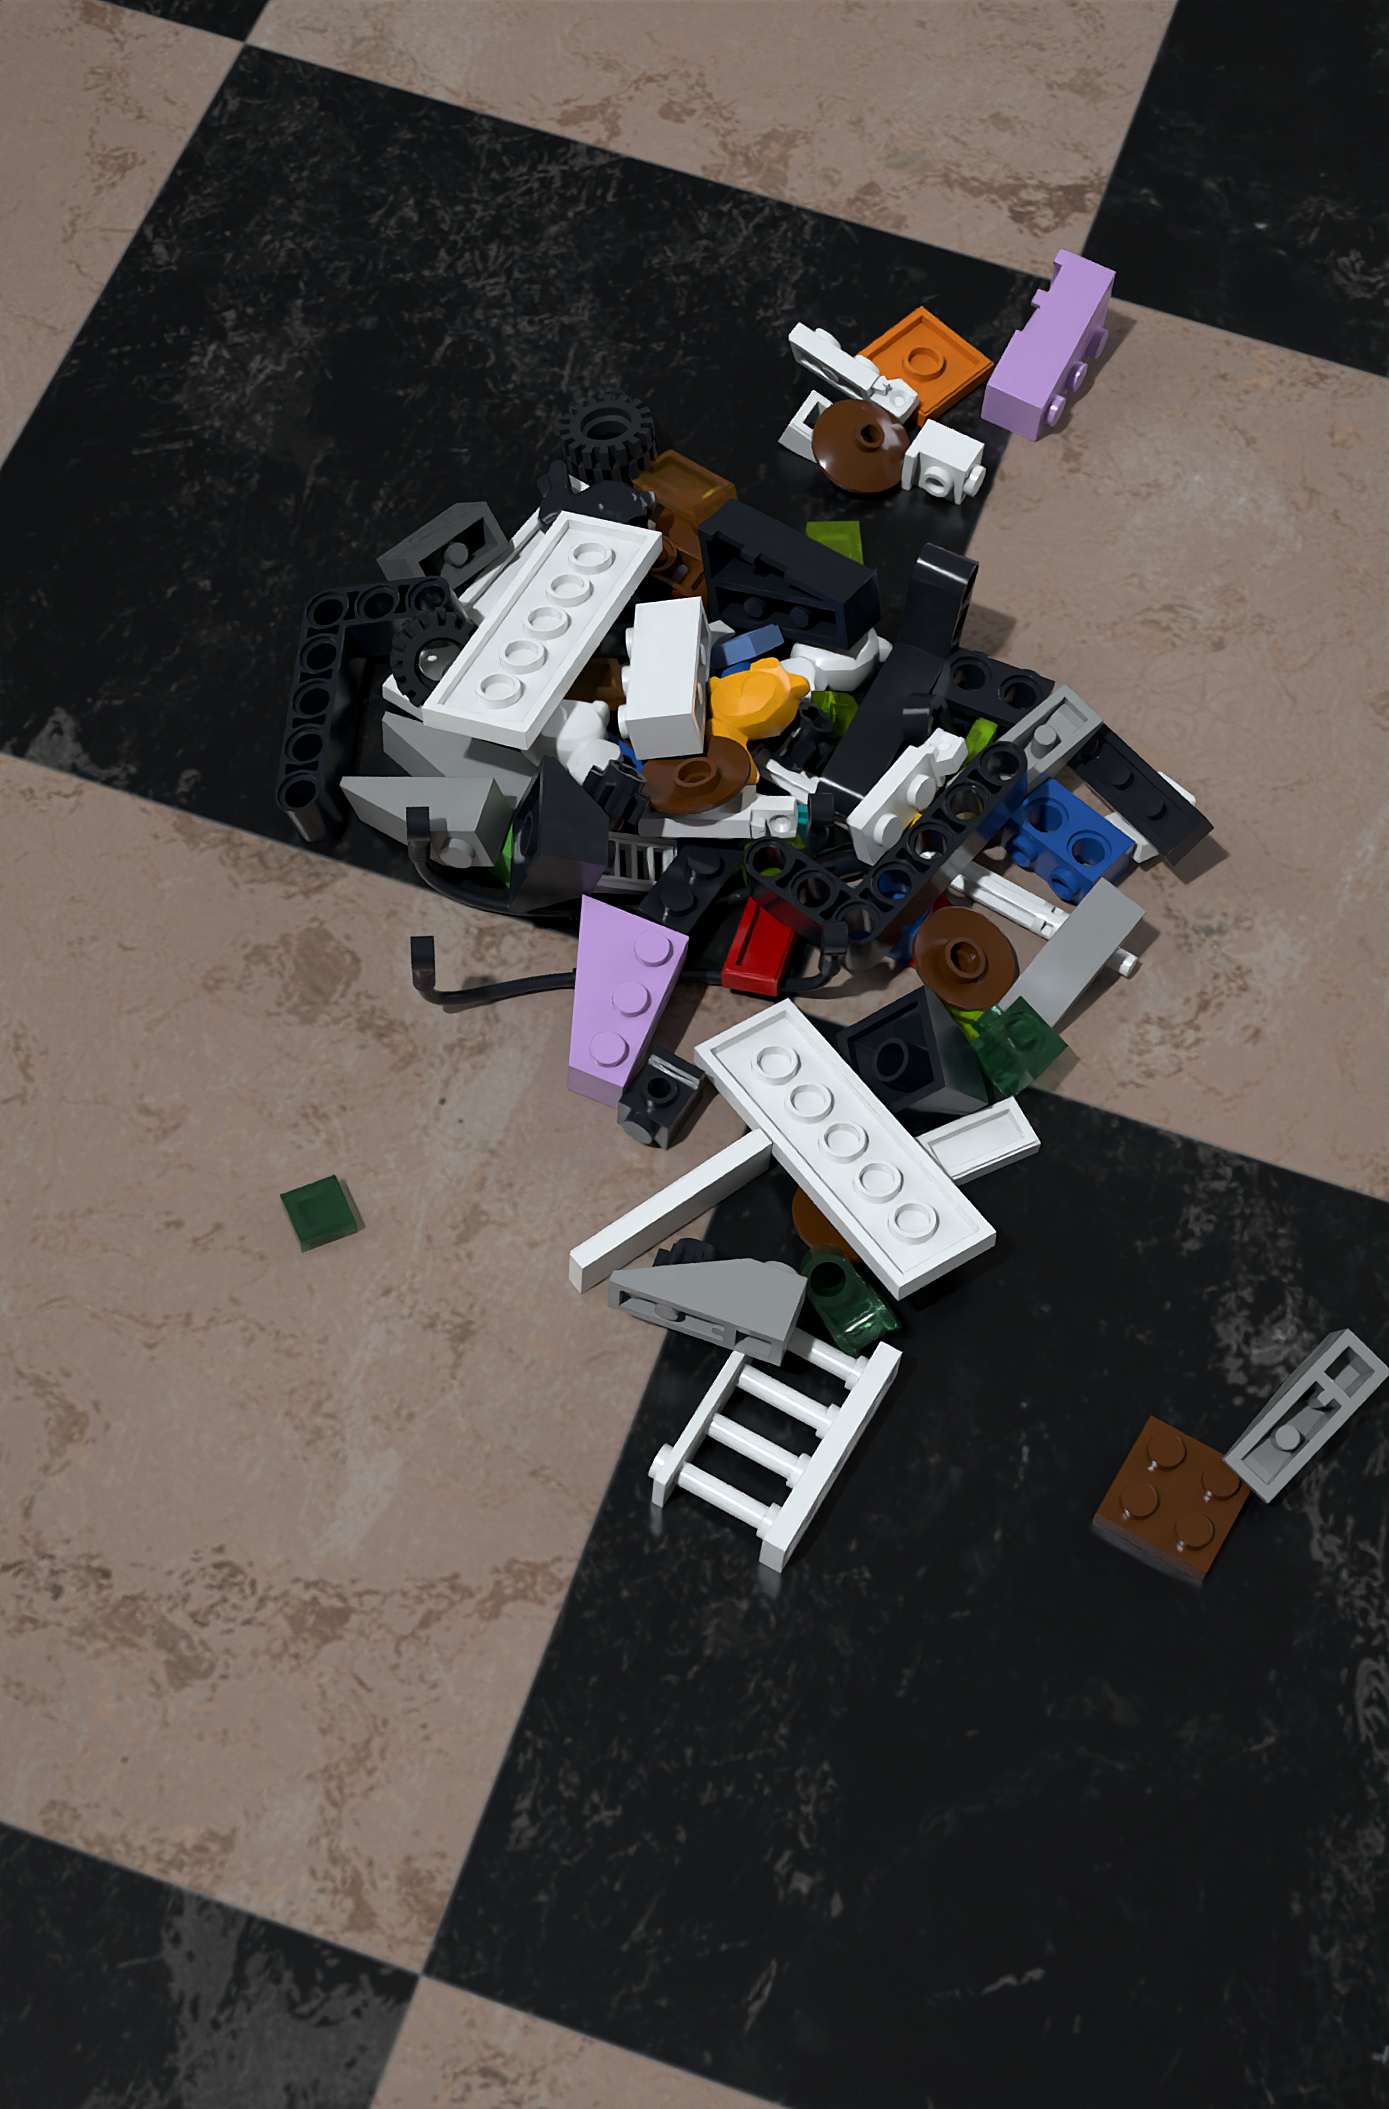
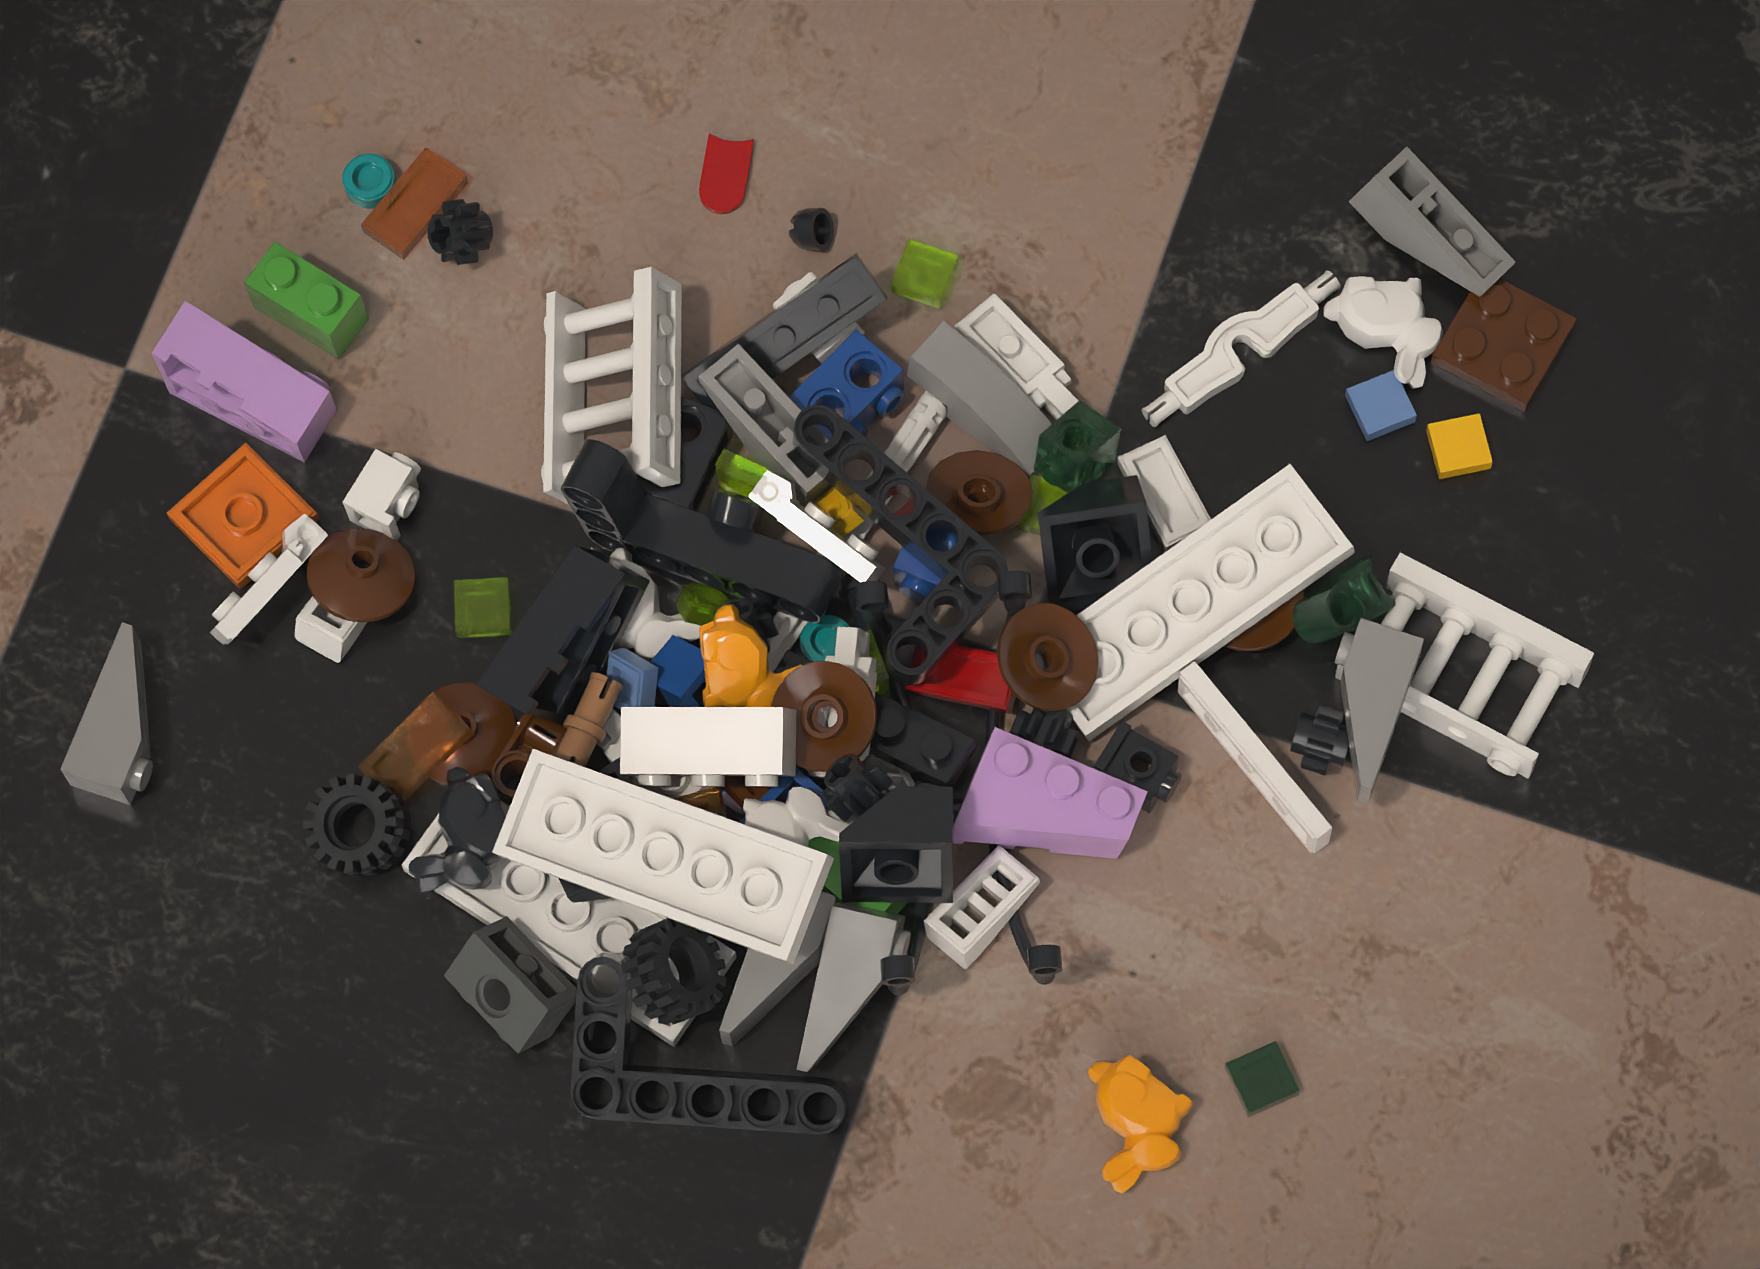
camera: 80 degrees left, 10 degrees up
(284, 1093) = (1142, 1113): none -> light orange animal
(494, 917) = (980, 935): none -> white slope
(694, 1010) = (1046, 730): none -> black gear
(711, 268) = (112, 739): none -> light grey slope
(719, 609) = (588, 721): none -> medium nougat pin
(768, 967) = (1067, 655): none -> reddish brown dish
(1043, 1443) = (1459, 446): none -> yellow tile
(1064, 634) = (656, 380): none -> white fence
(1088, 1363) = (1380, 405): none -> medium blue tile
(1121, 1004) = (1019, 354): none -> white hinge
(1139, 402) = (306, 300): none -> bright green brick
(1169, 1249) = (1261, 330): none -> white piece
(1192, 1368) = (1387, 316): none -> white animal
(1213, 927) = (924, 273): none -> clear neon green tile
(1221, 522) = (460, 232): none -> black gear
(1240, 822) = (812, 229): none -> black hinge
(1254, 497) = (407, 208): none -> clear orange tile
(1274, 462) = (368, 180): none -> teal tile
(1311, 756) = (725, 174): none -> red piece

